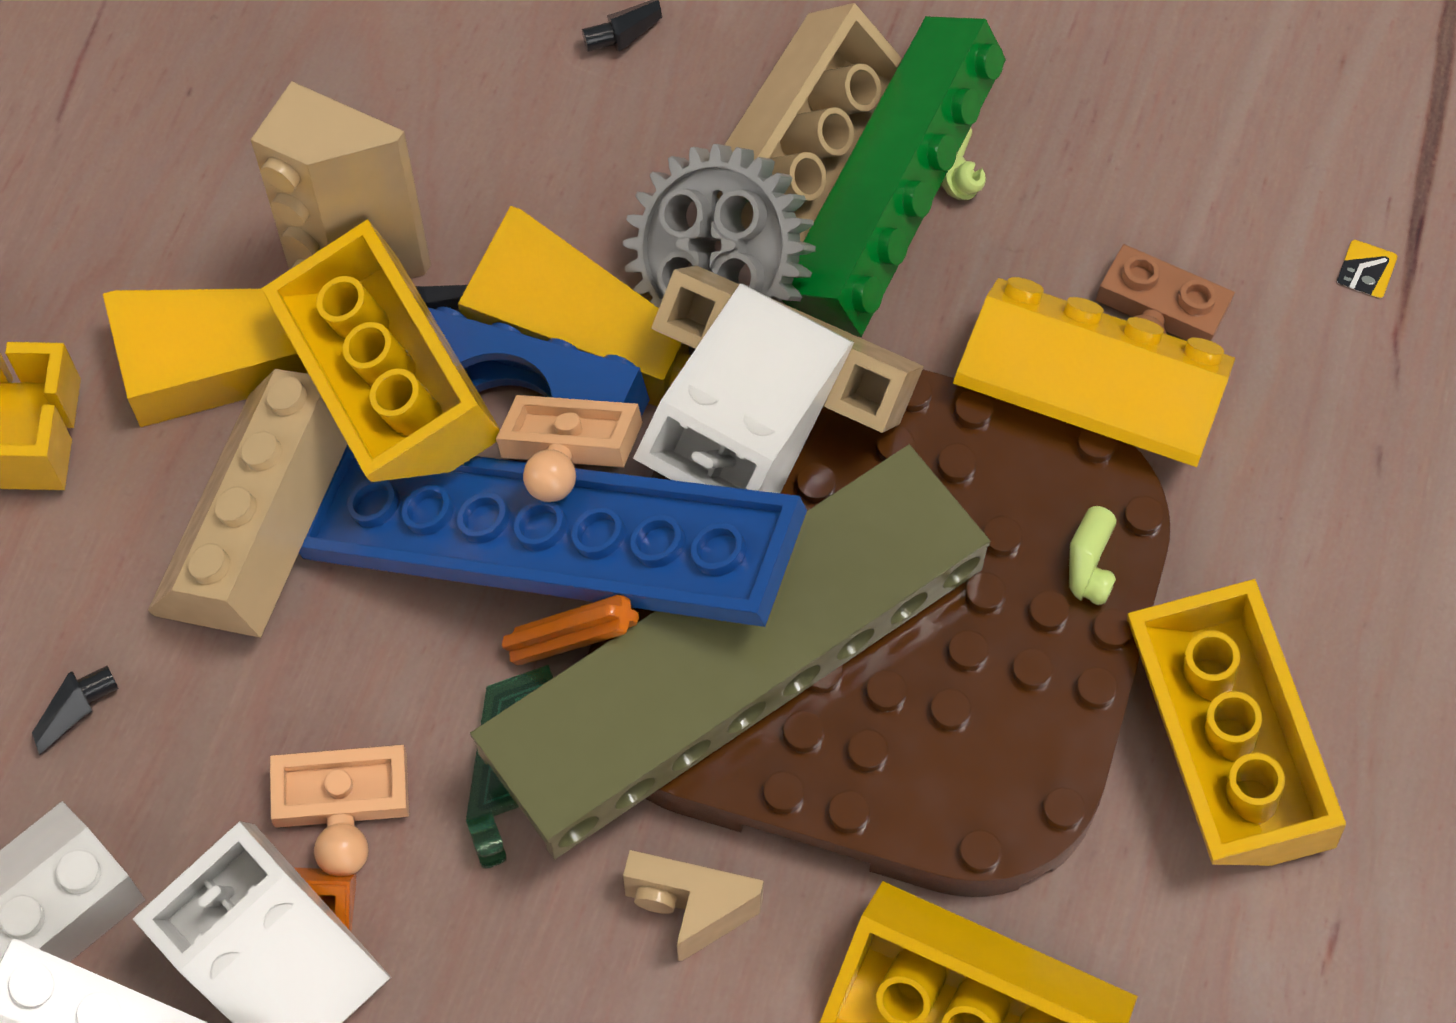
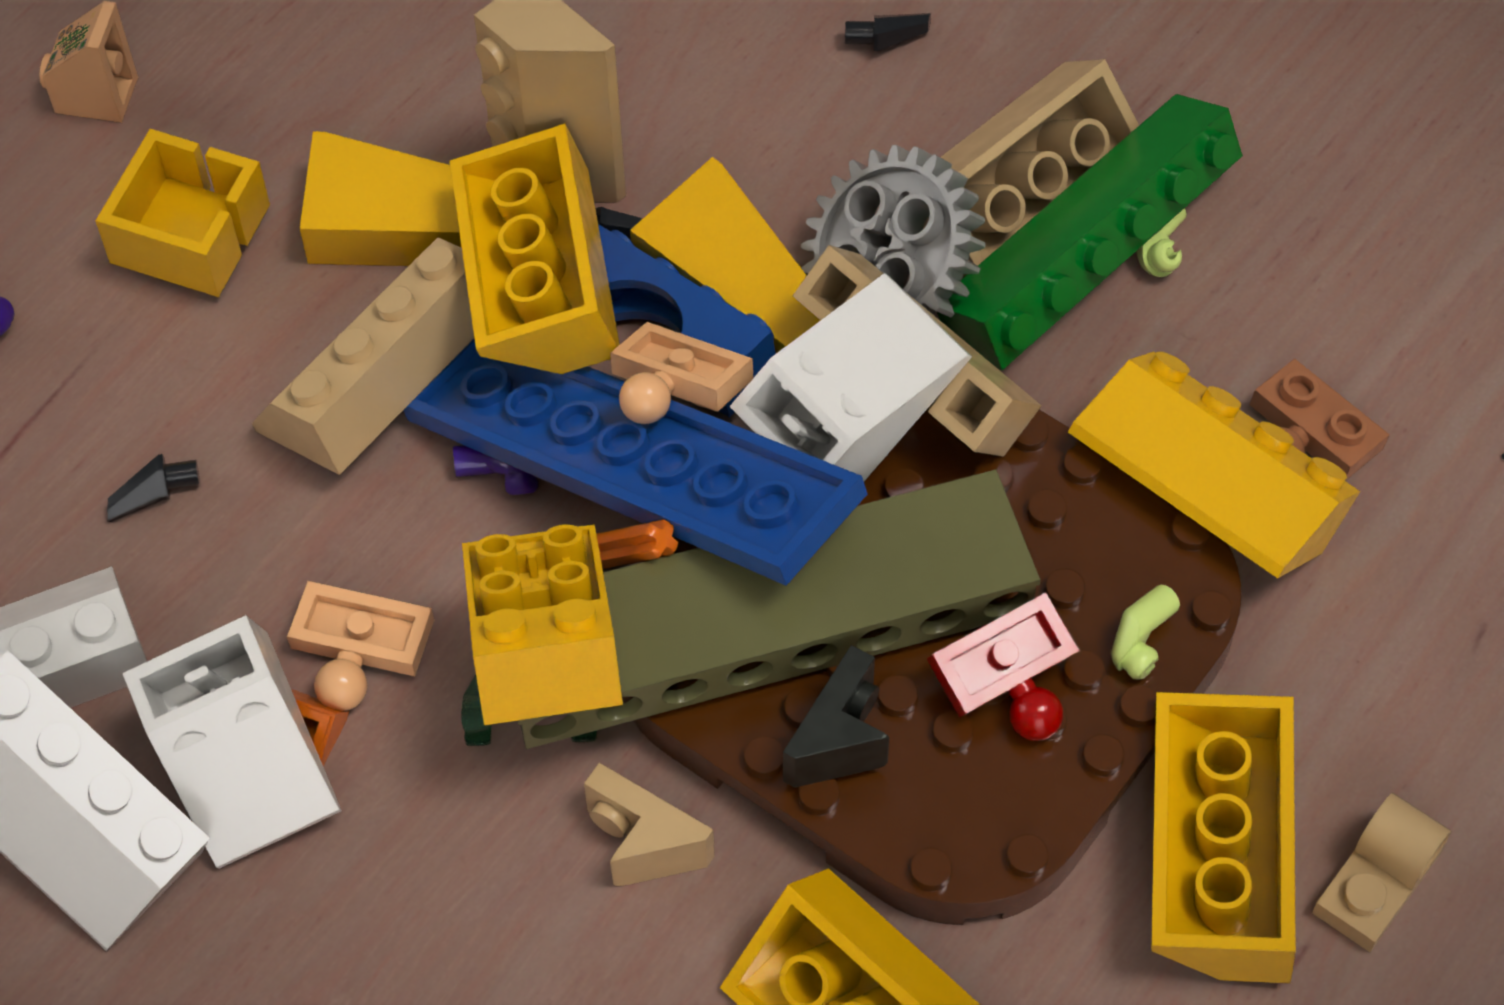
camera: 20 degrees right, 5 degrees down
(383, 583) = (471, 463): none -> dark purple arm
(539, 738) = (540, 624): none -> yellow slope
(849, 753) = (833, 734): none -> pearl dark grey slope
(980, 626) = (1006, 659): none -> plate
(1379, 713) = (1382, 871): none -> tan plate

